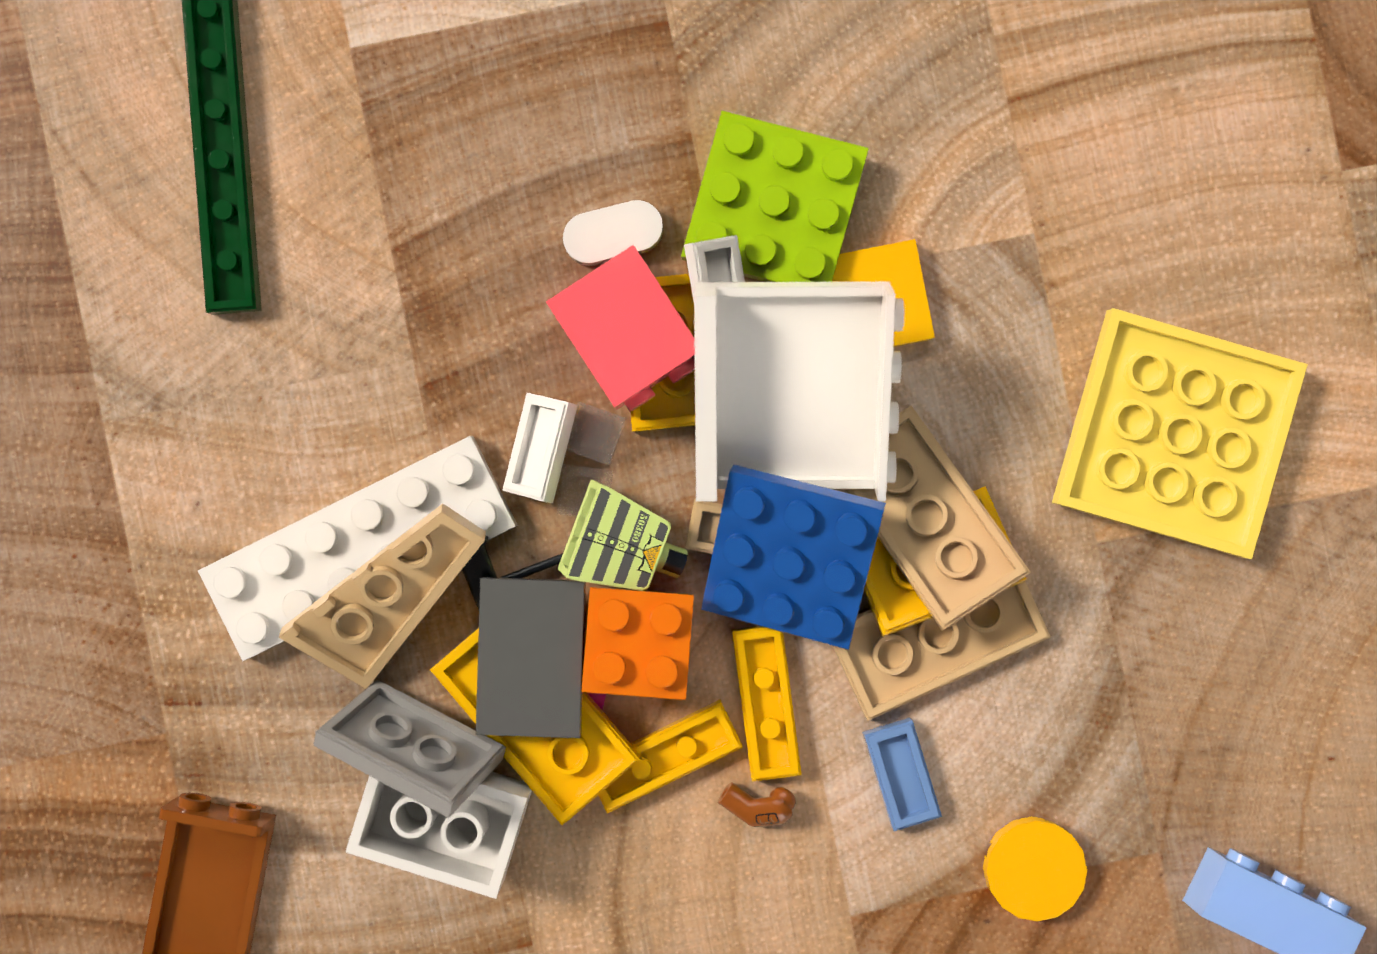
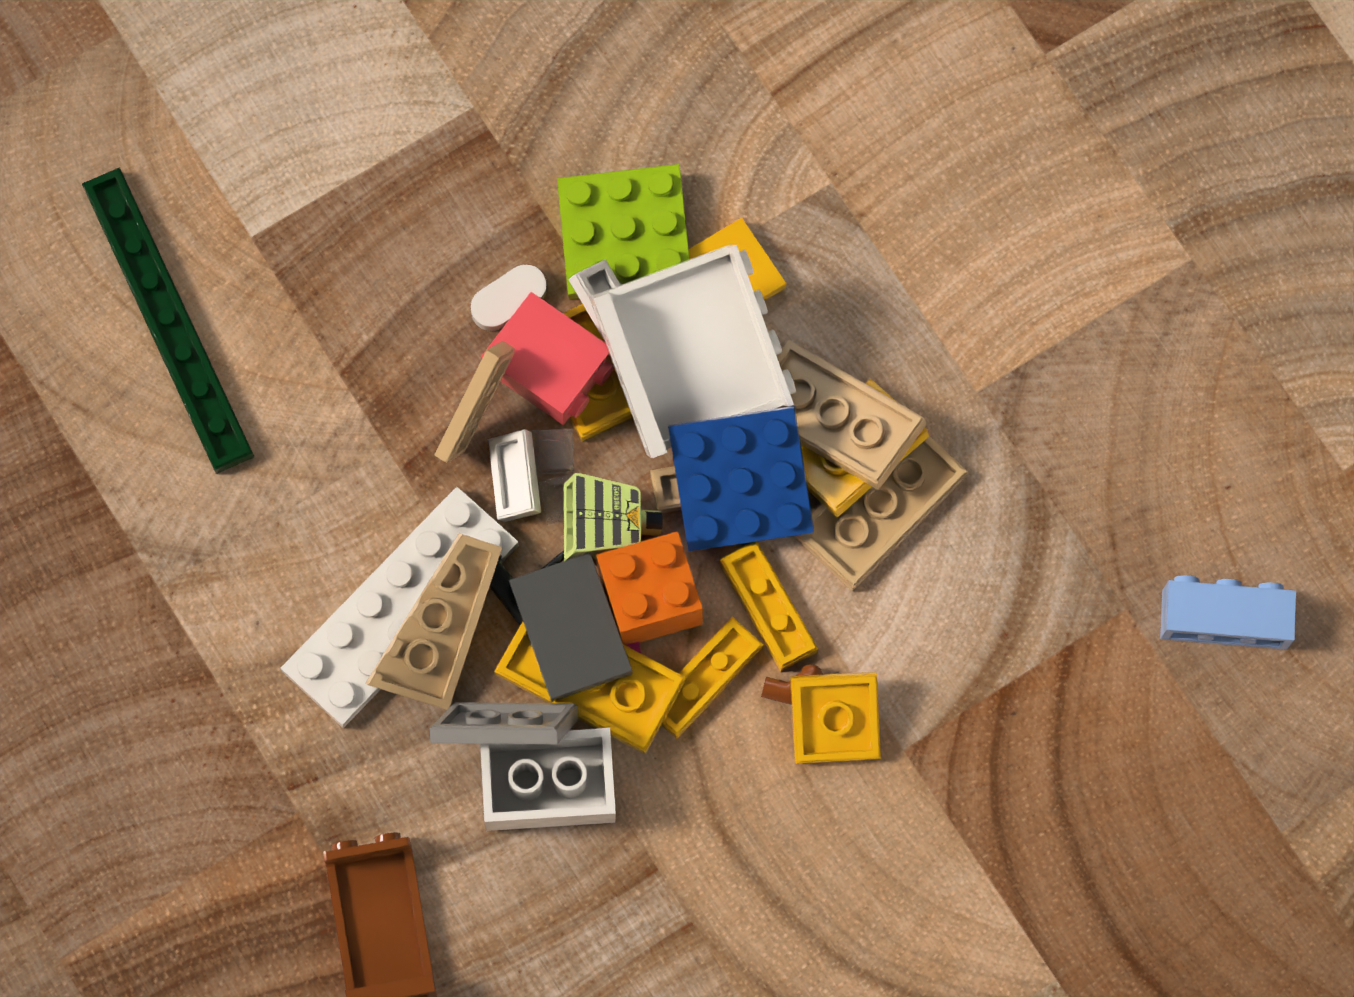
camera: 25 degrees left, 15 degrees down
(520, 352) = (475, 401): none -> tan tile
(789, 862) = (835, 717): none -> yellow tile
(902, 774) = (897, 621): medium blue tile -> none
(1035, 868) = (1031, 654): yellow tile -> none
(1179, 433) = (1001, 286): light yellow plate -> none

